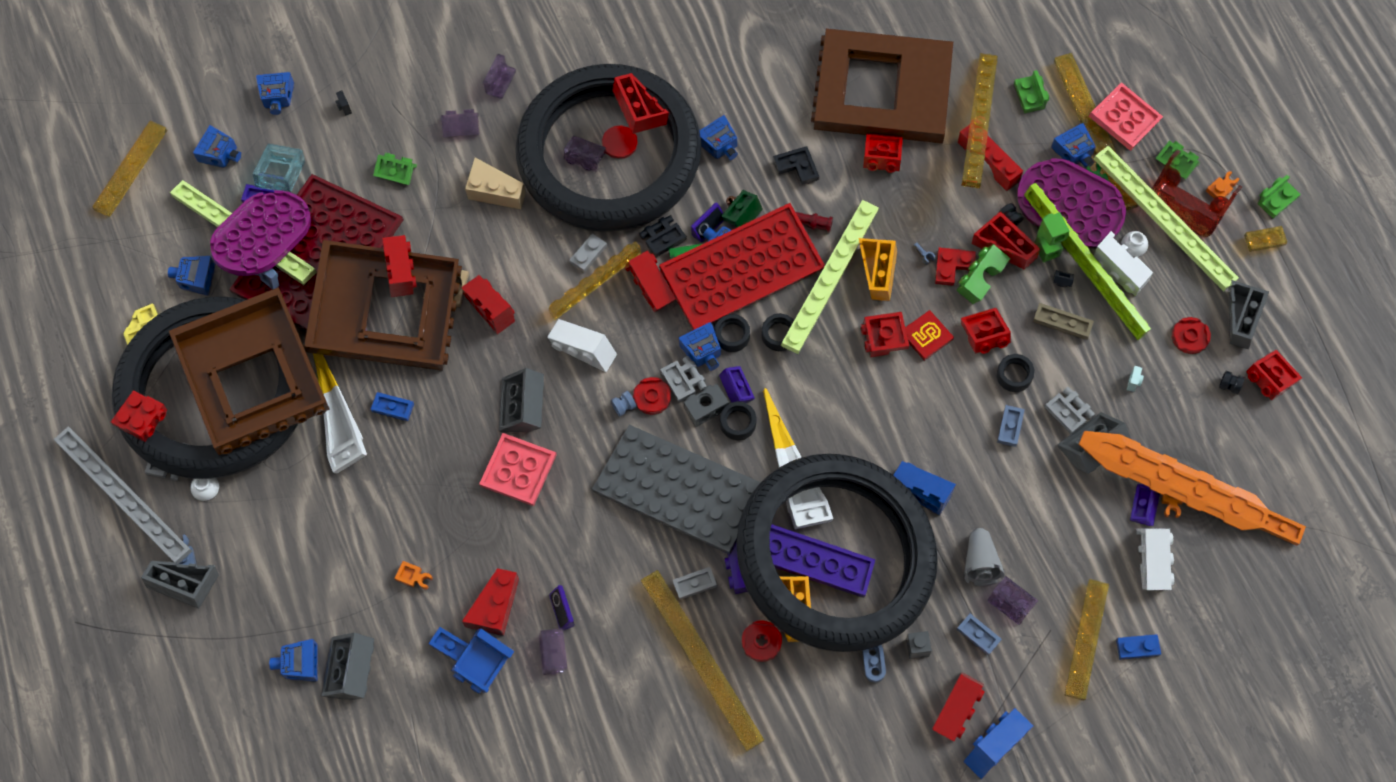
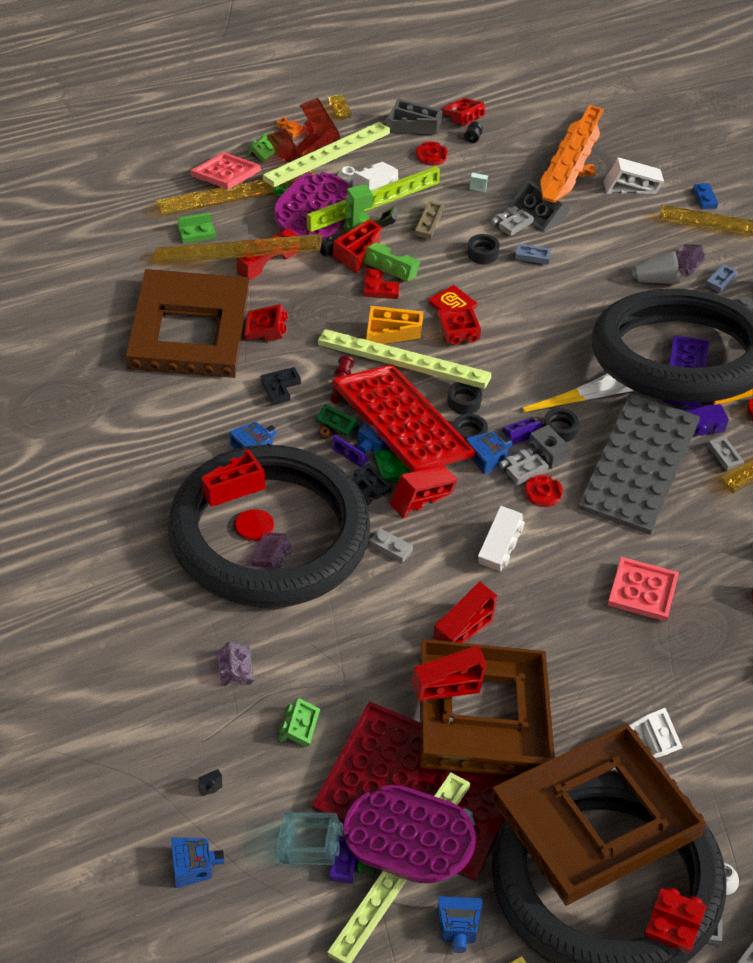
camera: 100 degrees left, 20 degrees down
(216, 148) = (278, 918): blue torso -> none
(392, 406) = (595, 701): blue plate -> none
(494, 186) = (318, 626): tan wedge -> none
(498, 77) = (176, 629): clear purple bracket -> none
(521, 401) = (571, 589): dark grey slope -> none
(595, 280) = (427, 535): clear yellow plate -> none
(623, 403) = (558, 508): sand blue wheel -> none
(925, 254) = (373, 302): sand blue hand -> none
(927, 488) = (607, 293): blue wedge -> none
(986, 331) = (446, 262): red plate -> none
(1075, 146) = (254, 203): blue torso -> none
(1144, 505) = (588, 186): dark purple slope -> none
(1278, 197) = (295, 96): bright green bracket -> none

